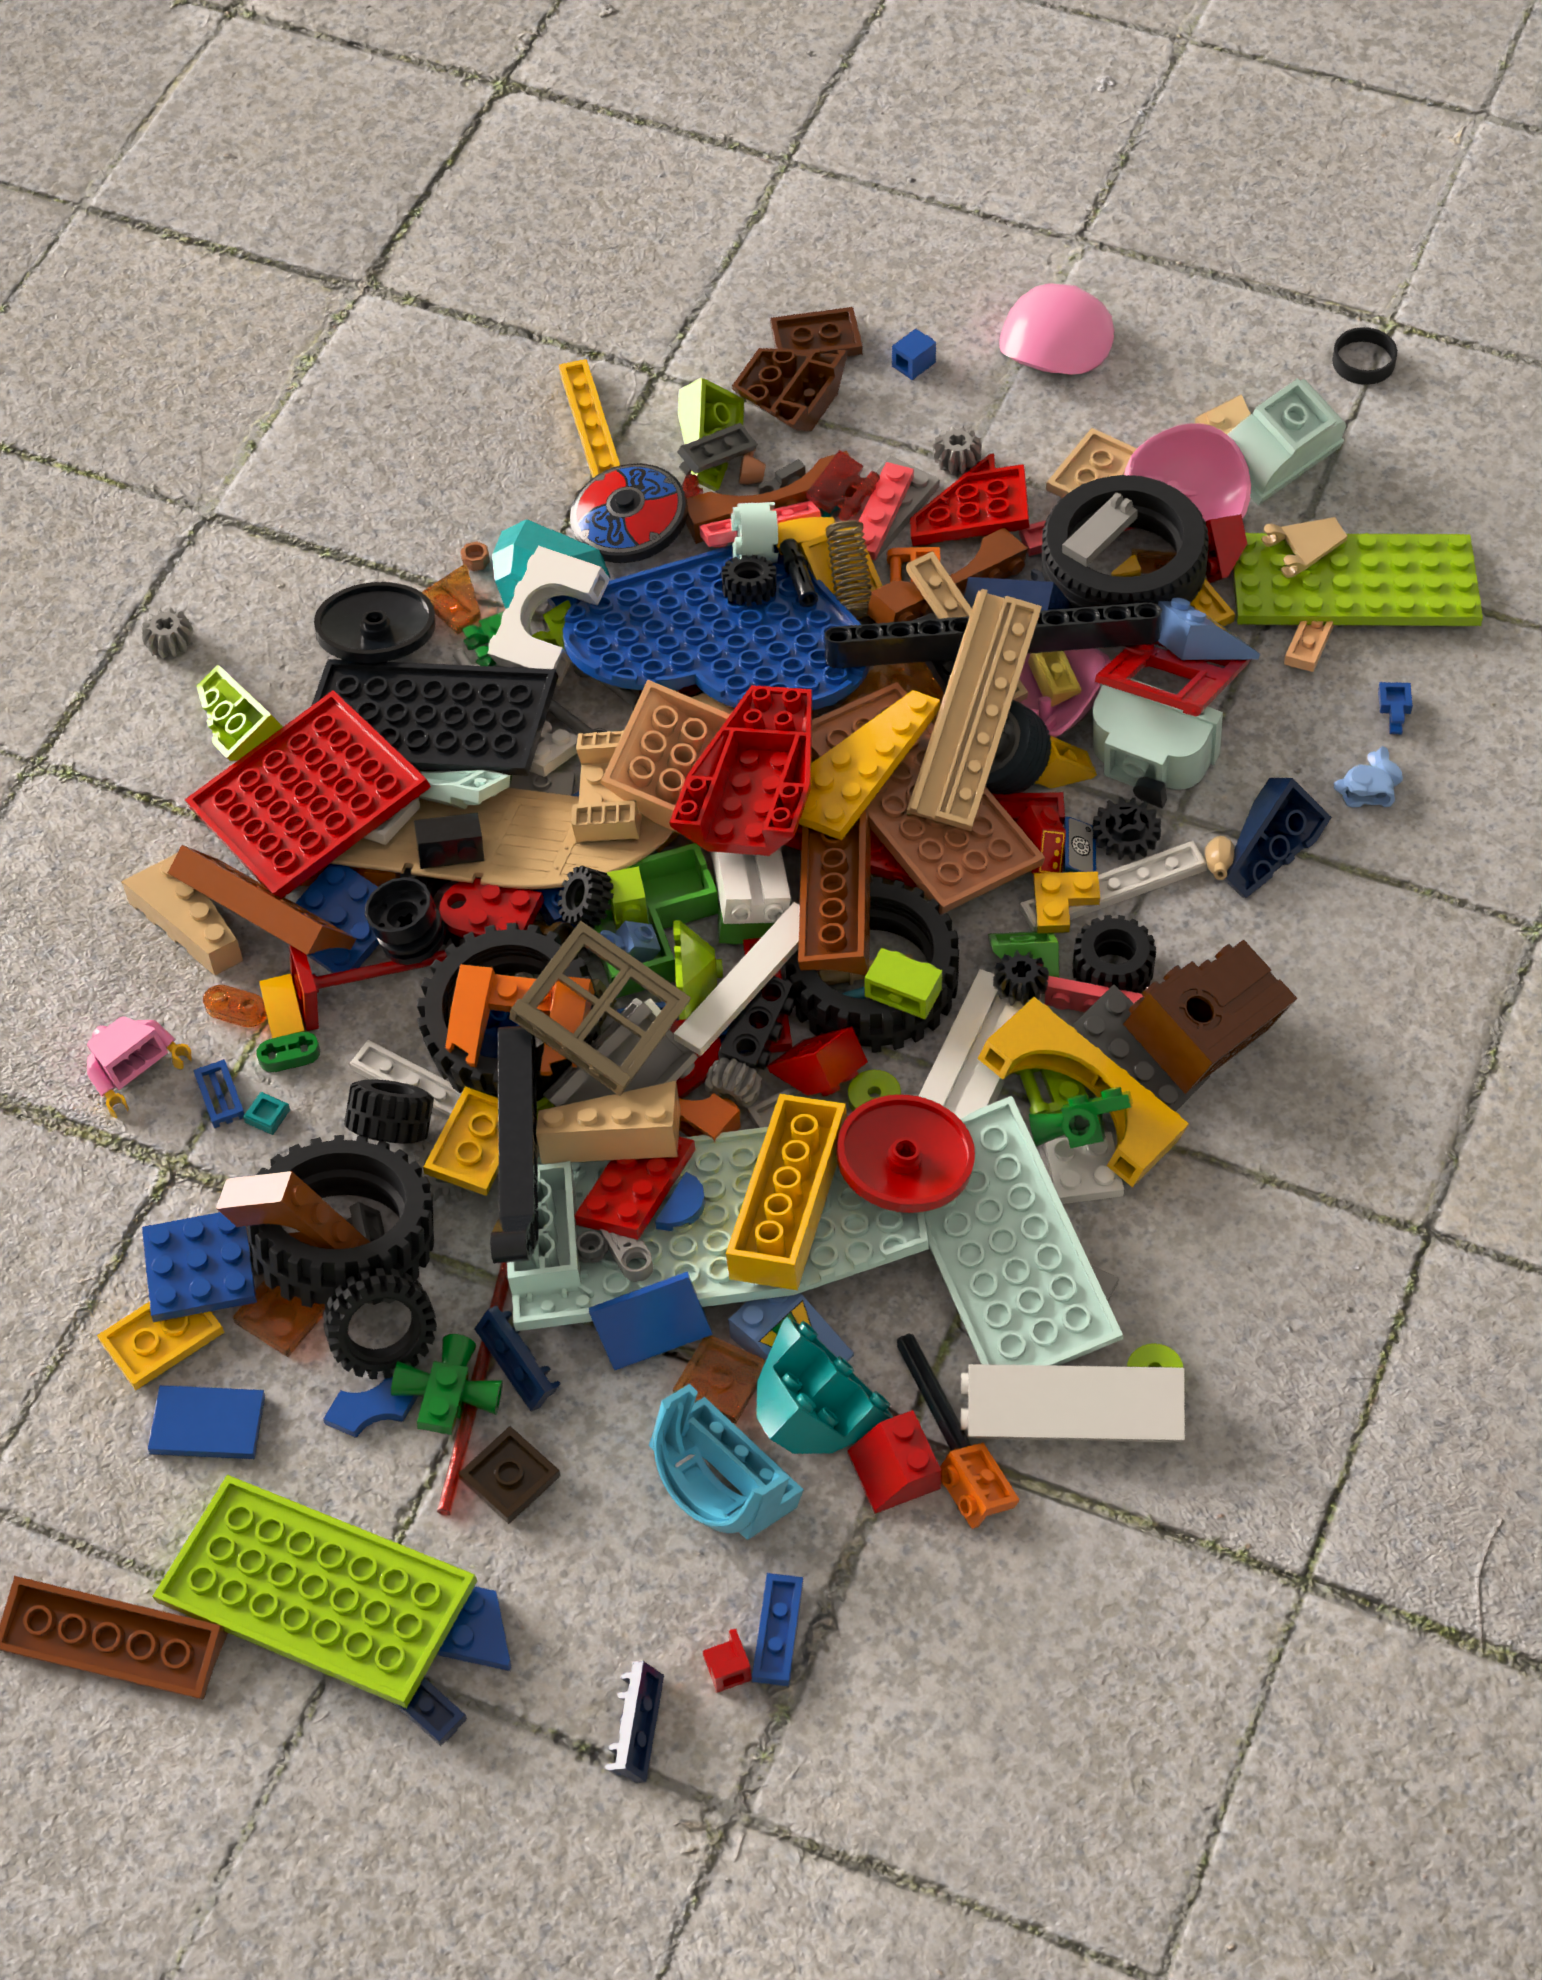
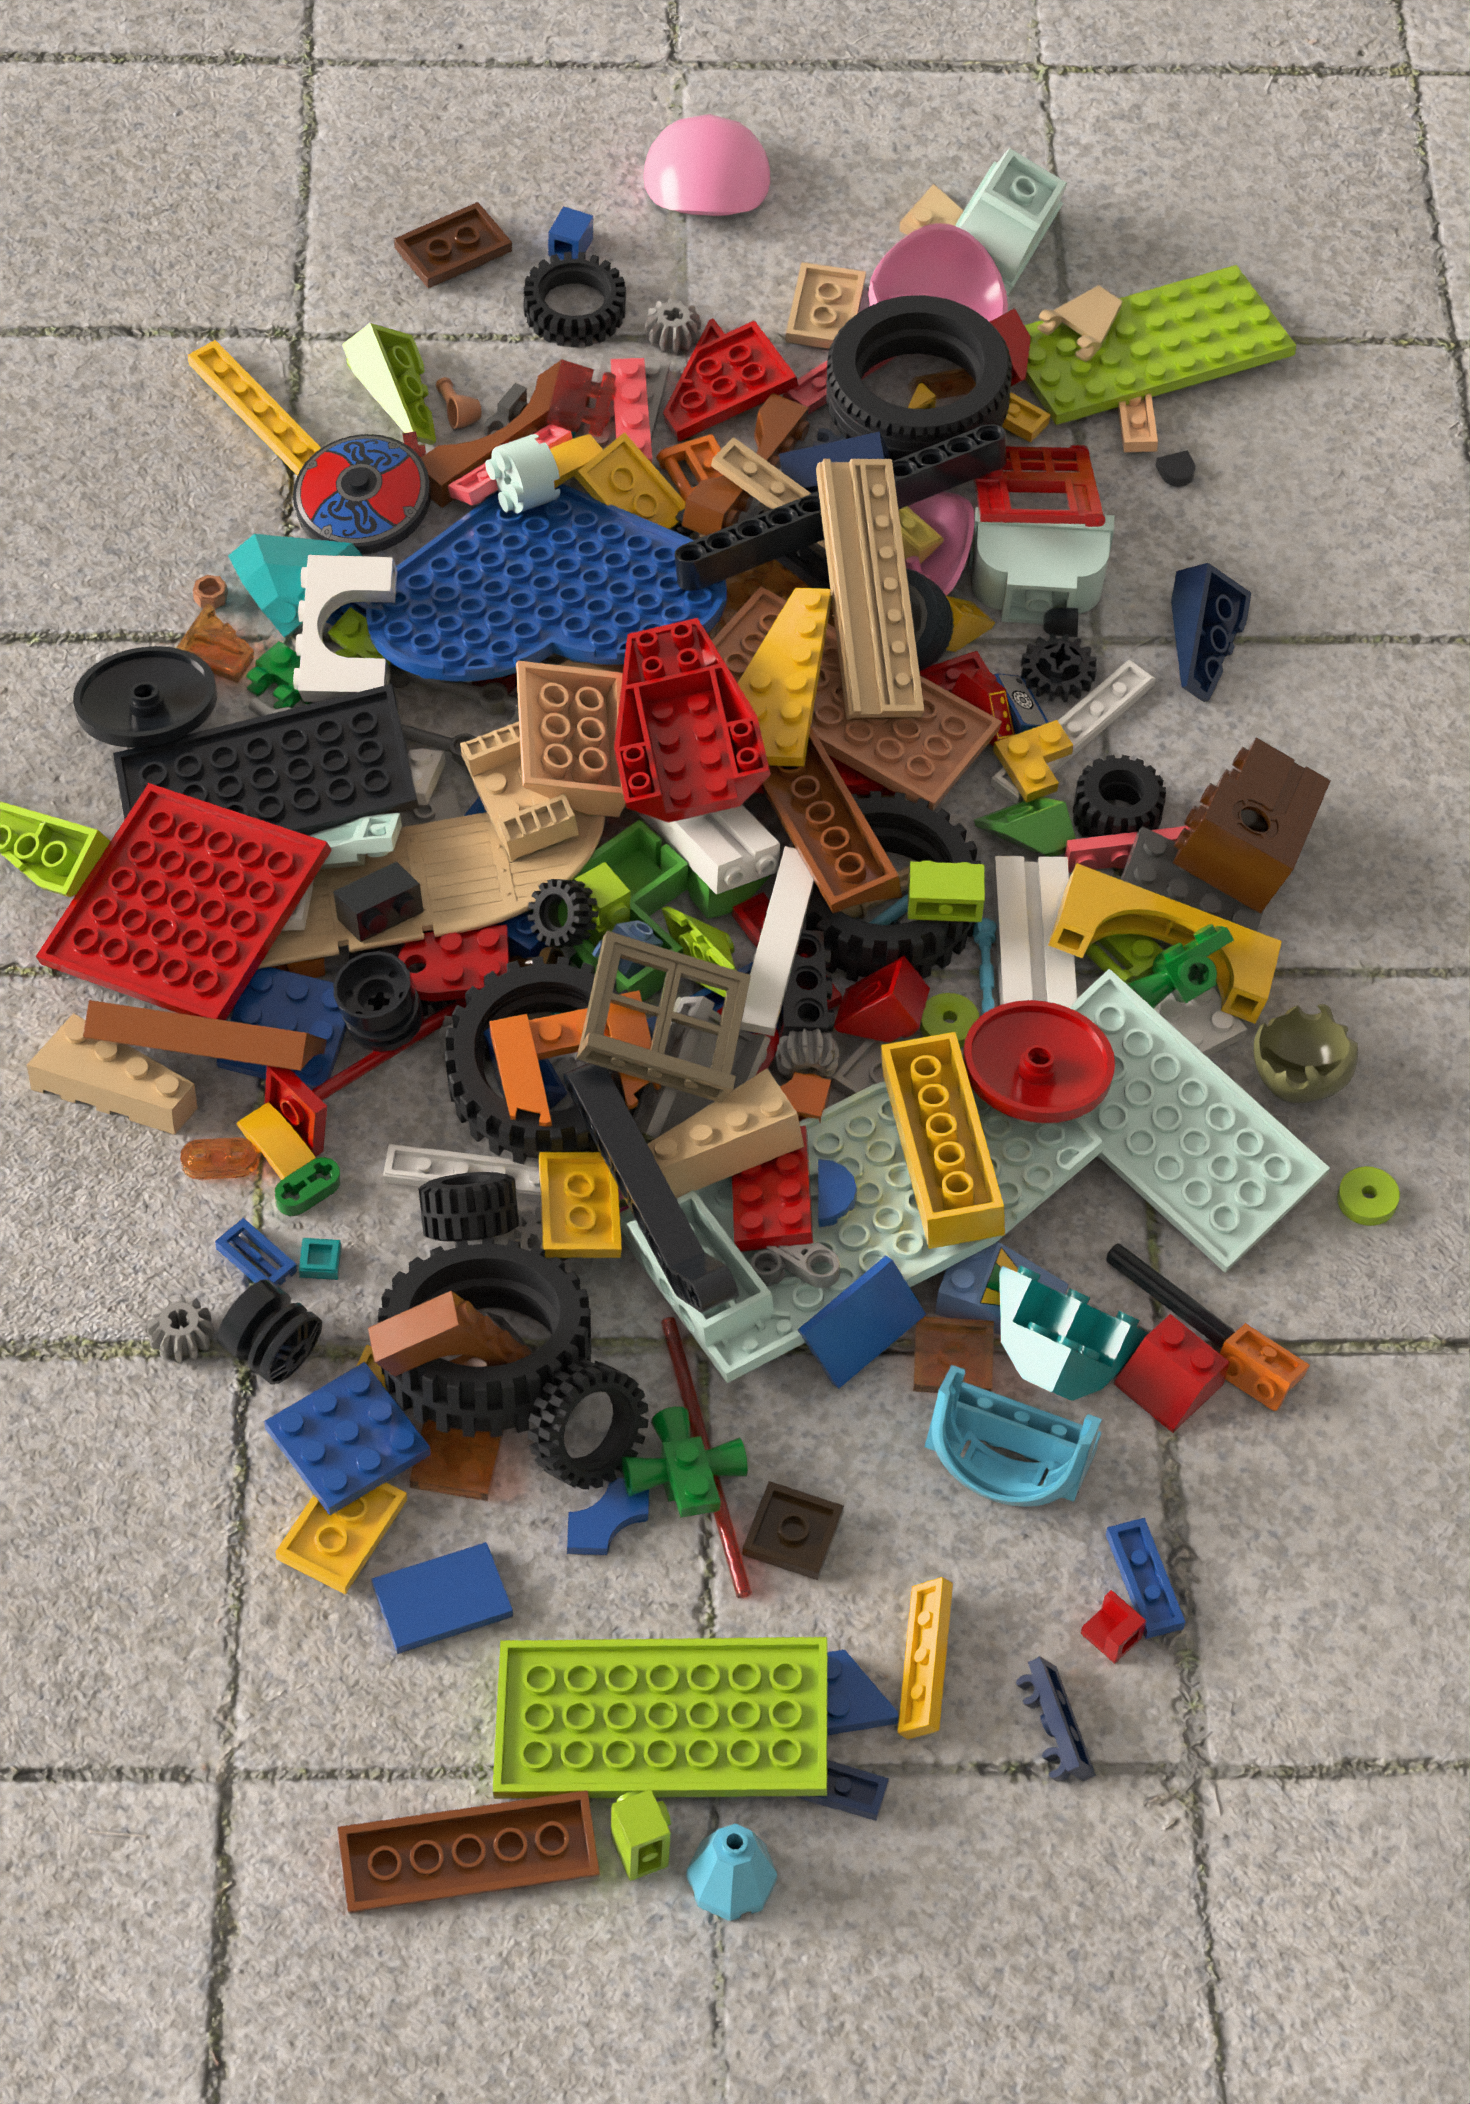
camera: 30 degrees left, 0 degrees up
(125, 1052) = (134, 1246): bright pink torso -> none
(127, 1130) = (180, 1328): none -> light grey gear
(185, 1156) = (269, 1331): none -> black wheel
(240, 1678) = (641, 1833): none -> lime brick
(304, 1741) = (732, 1873): none -> medium azure cone
(515, 1358) = (736, 1411): dark blue plate -> none
(556, 1624) = (925, 1658): none -> yellow plate
(716, 449) = (423, 398): dark grey plate -> none
(749, 580) = (544, 526): black tyre -> none
(792, 384) = (457, 304): reddish brown wedge -> none
(796, 566) = (581, 496): black pin -> none
(831, 531) = (625, 443): dark tan piece -> none
(889, 430) = (574, 271): none -> black tyre
(940, 1034) = (984, 936): none -> medium azure piece
(1020, 978) = (1047, 850): black gear -> none
(1074, 1403) = (1316, 1251): white brick -> none
(1100, 530) = (895, 364): light grey hinge -> none
(1154, 1229) = (1305, 1055): none -> olive piece
(1198, 637) = (1039, 447): medium blue slope -> none
(1219, 856) = (1166, 666): tan plant -> none
(1324, 692) = (1176, 468): none -> black tile
(1359, 376) = (1040, 86): black tyre -> none
(1371, 783) = (1271, 545): light blue animal -> none
(1396, 700) = (1253, 455): blue plate -> none

